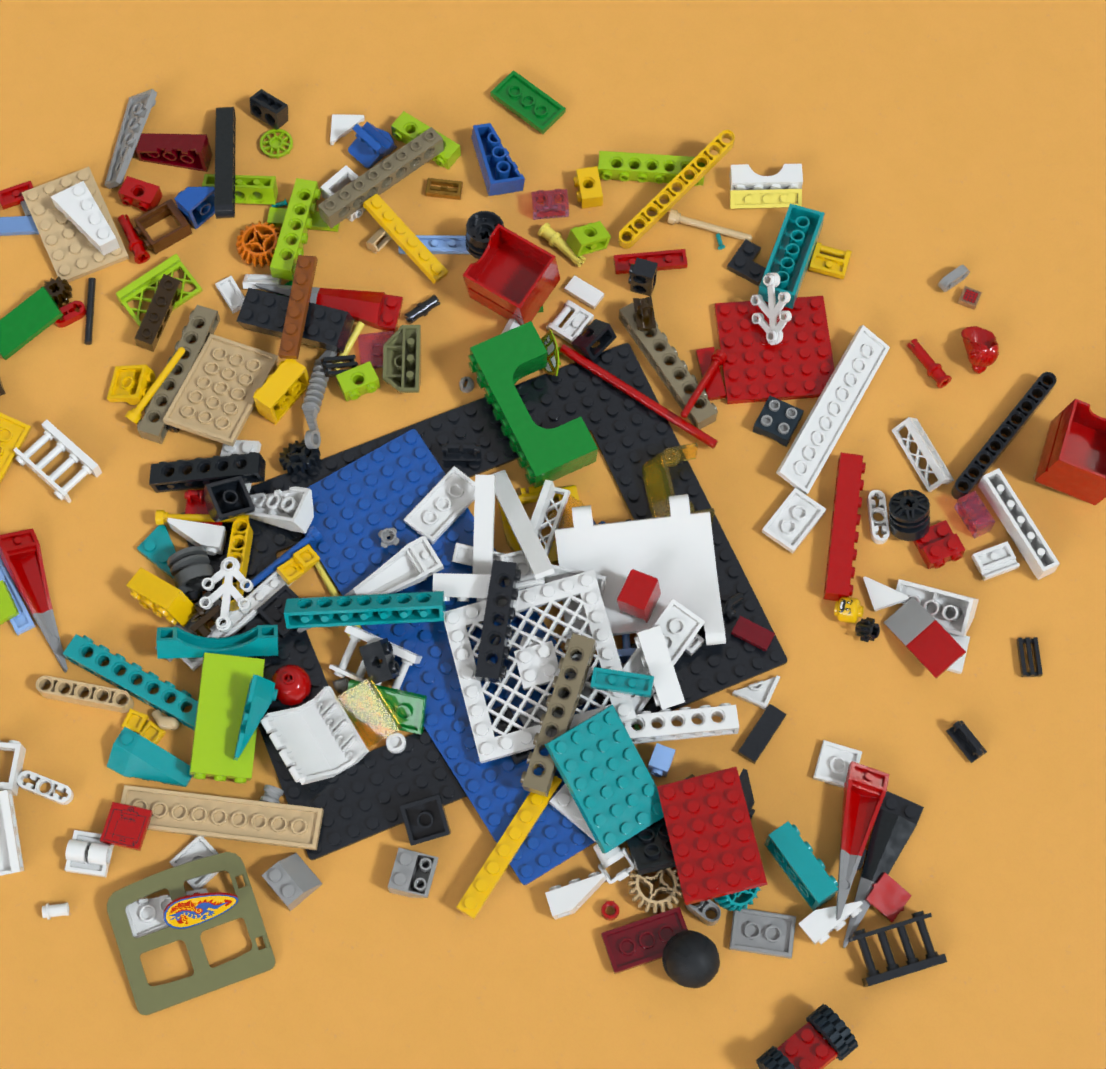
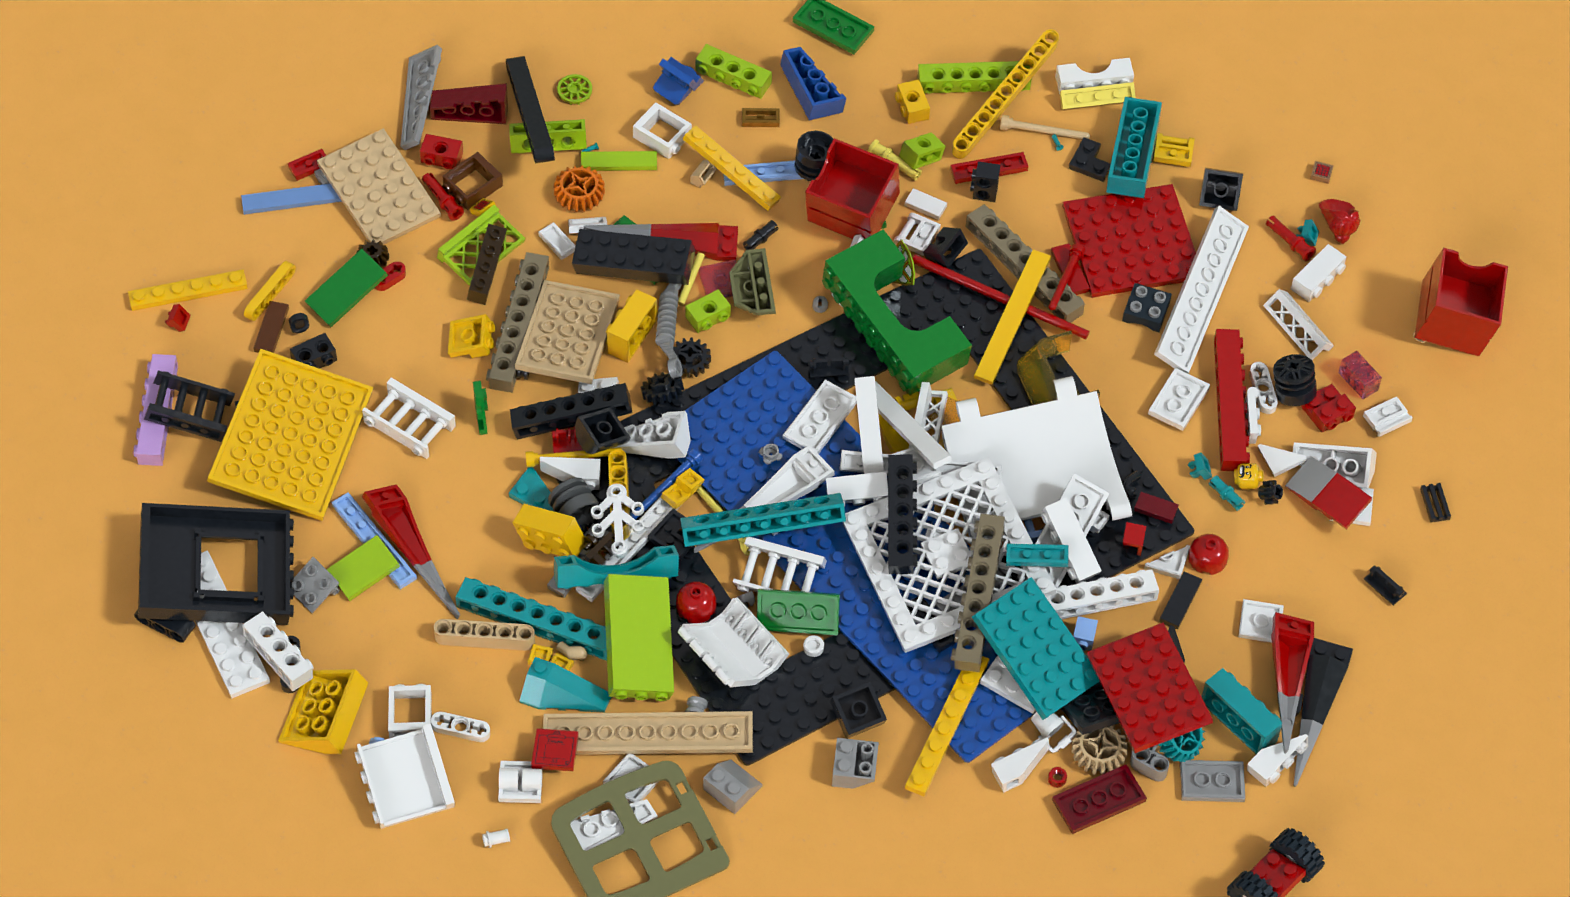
camera: 10 degrees left, 10 degrees down
(85, 214) = (392, 173): white wedge -> none
(90, 311) = (410, 271): black bar -> none
(124, 457) = (481, 406): none -> green wing
(135, 414) = (482, 364): yellow piece -> none
(167, 253) = (481, 206): none -> yellow tile
(196, 204) = (508, 153): blue slope -> none
(197, 908) = (646, 813): shield -> none
(258, 699) = (670, 614): teal wedge -> none
(269, 109) = (562, 54): black brick -> none
(297, 307) = (638, 240): dark orange plate -> none
(301, 202) = (614, 169): lime brick -> none
(334, 429) = (693, 356): none -> black gear
(342, 125) = (642, 64): white tile -> none
(352, 364) = (684, 294): black tile -> none
(369, 712) = (783, 616): clear yellow tile -> none
(379, 671) = (786, 577): black brick -> none
(381, 177) = (697, 109): dark tan brick -> none
(550, 208) = (875, 121): clear pink brick -> none
(639, 595) = (1038, 476): red piece -> none
(644, 314) = (995, 215): dark brown hips -> none
(645, 419) = (1012, 317): none -> yellow tile
(691, 959) = (1146, 808): black piece -> none
(725, 664) = (1134, 536): none -> red panel
(773, 330) = (1129, 220): white plant -> none
(797, 688) = (1208, 554): none -> red cylinder
(805, 594) = (1202, 467): none -> teal tile
(825, 624) = (1227, 492): none -> teal pin
(862, 545) = (1252, 415): none -> white plate
(868, 307) = (1221, 189): none -> black brick
(888, 897) = (1331, 734): piece -> none
(893, 969) = (1348, 798): black fence -> none
(947, 359) = (1309, 232): none -> teal tile
(950, 403) = (1319, 273): none -> white brick
(953, 278) = (1302, 154): light grey beam -> none
(1007, 428) = (1378, 297): black beam -> none
(1018, 524) = (1405, 378): white brick -> none

